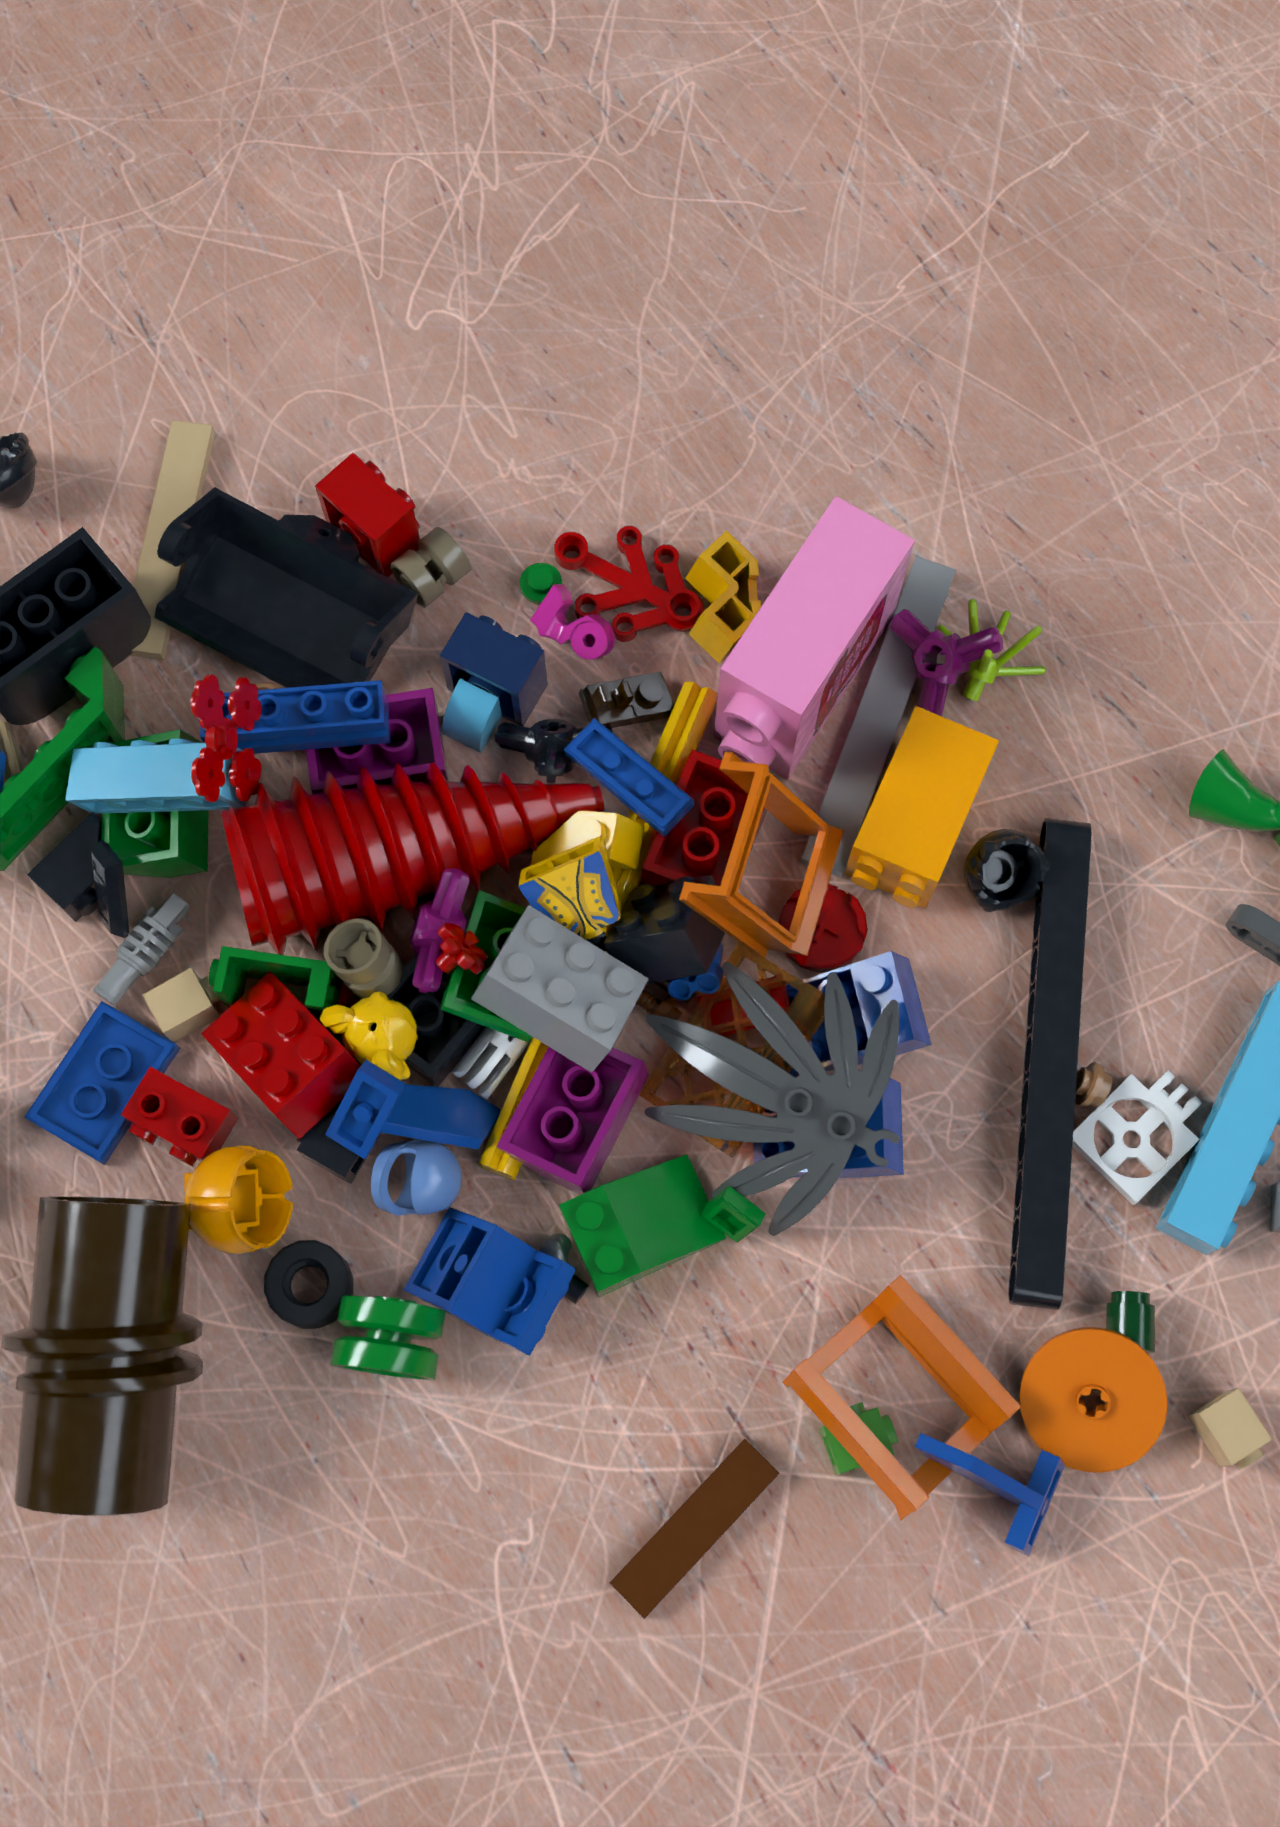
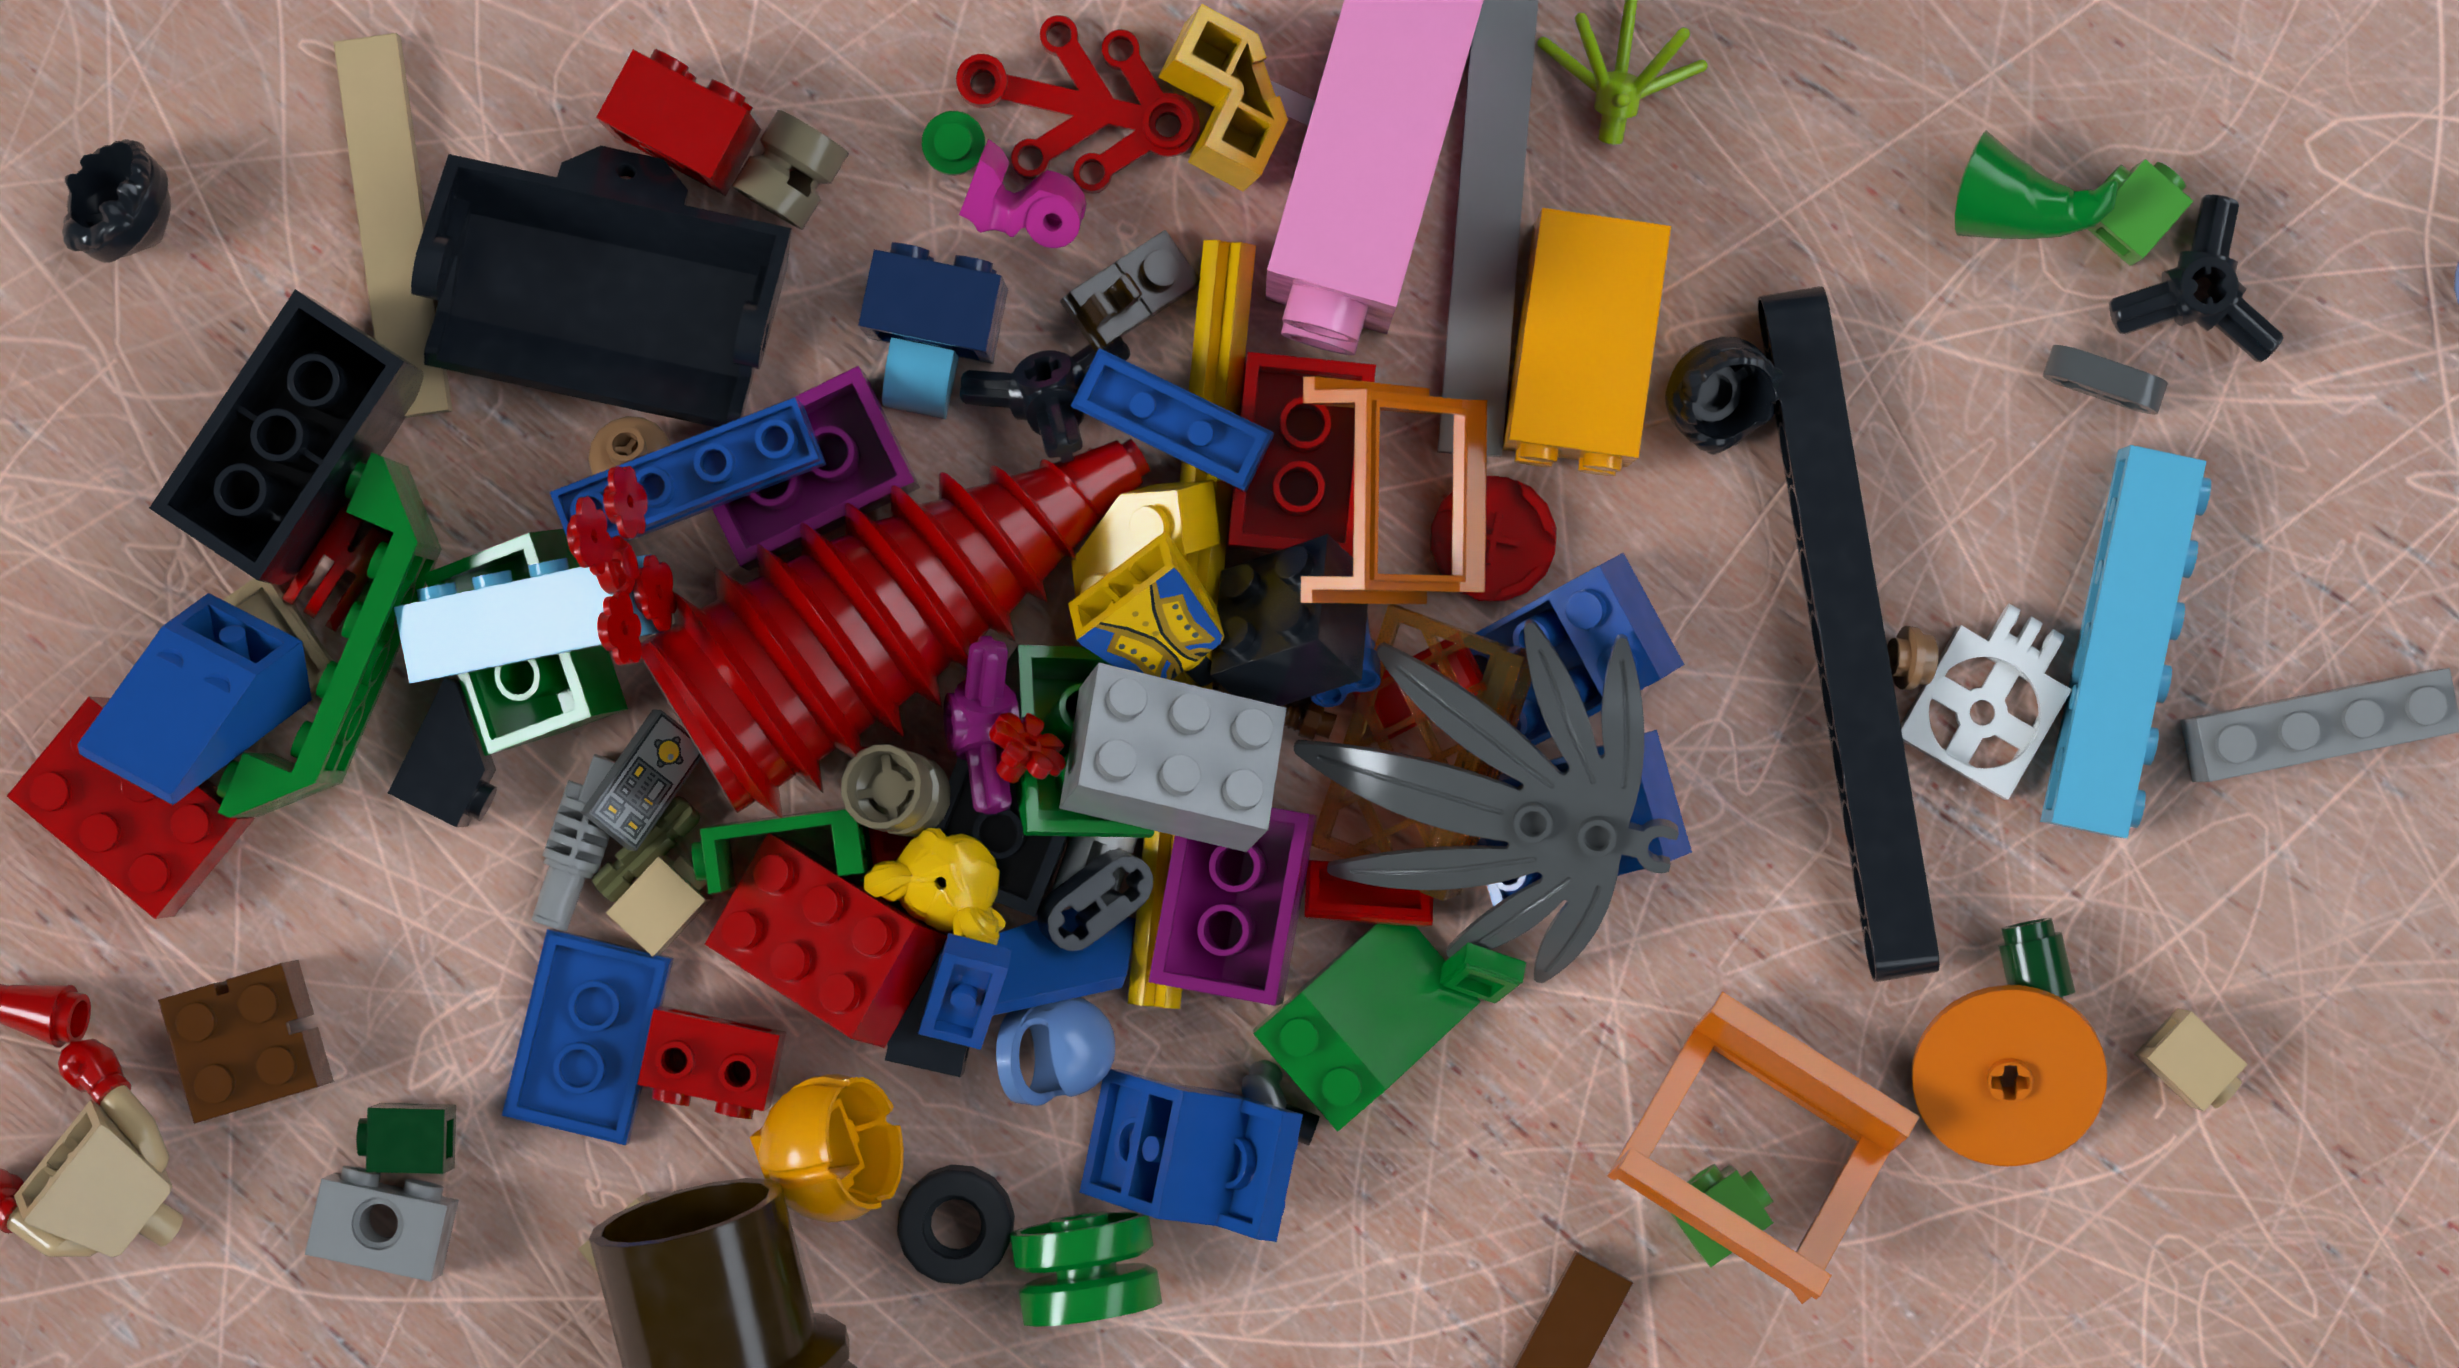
camera: 10 degrees left, 15 degrees up
(45, 724) = (338, 546): none -> red arm
(110, 889) = (510, 782): black tile -> none
(197, 960) = (617, 877): none -> olive axle
(199, 919) = (643, 780): none -> tile
(481, 1090) = (1092, 896): none -> black beam
(666, 1141) = (1351, 901): none -> red tile
(958, 655) = (1574, 90): magenta bush -> none
(1031, 1499) = (1961, 1227): blue piece -> none

